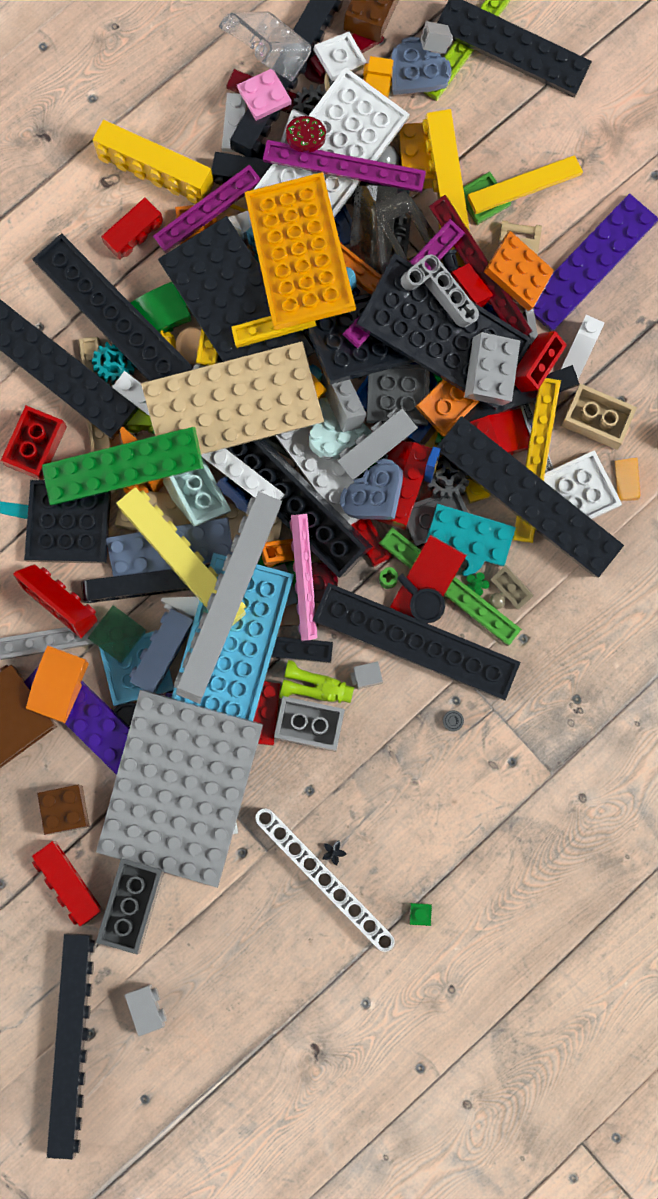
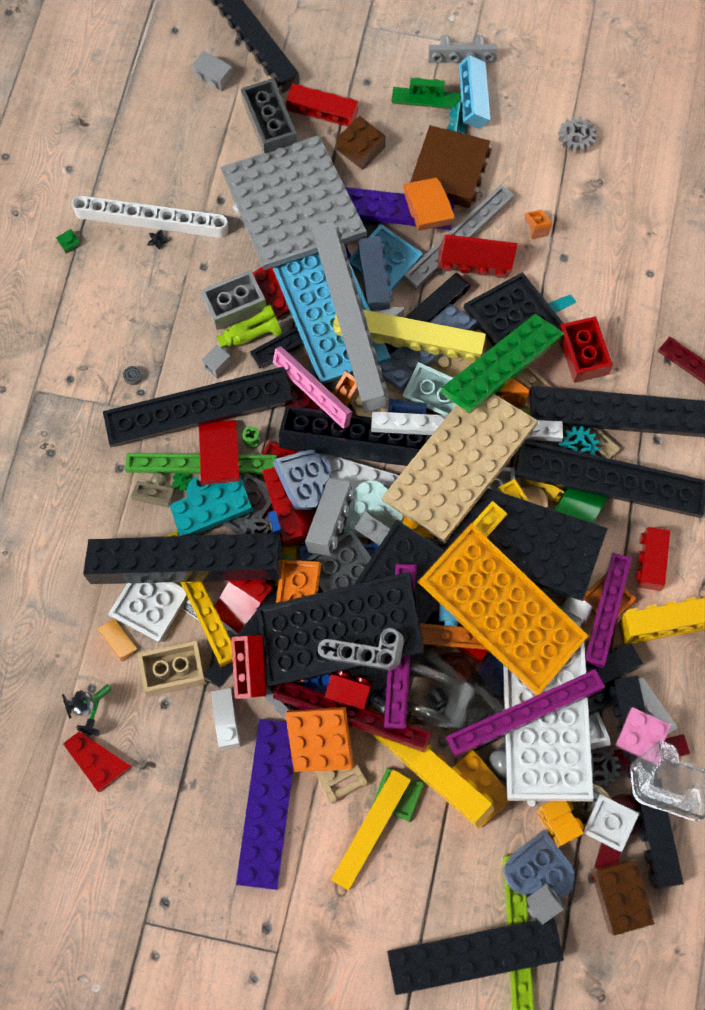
camera: 145 degrees right, 10 degrees down
(117, 634) = (415, 266): clear green plate -> none
(305, 134) = (577, 713): dark red tile -> none
(426, 604) = (209, 434): black piece -> none
(492, 369) = (279, 627): light grey brick -> none

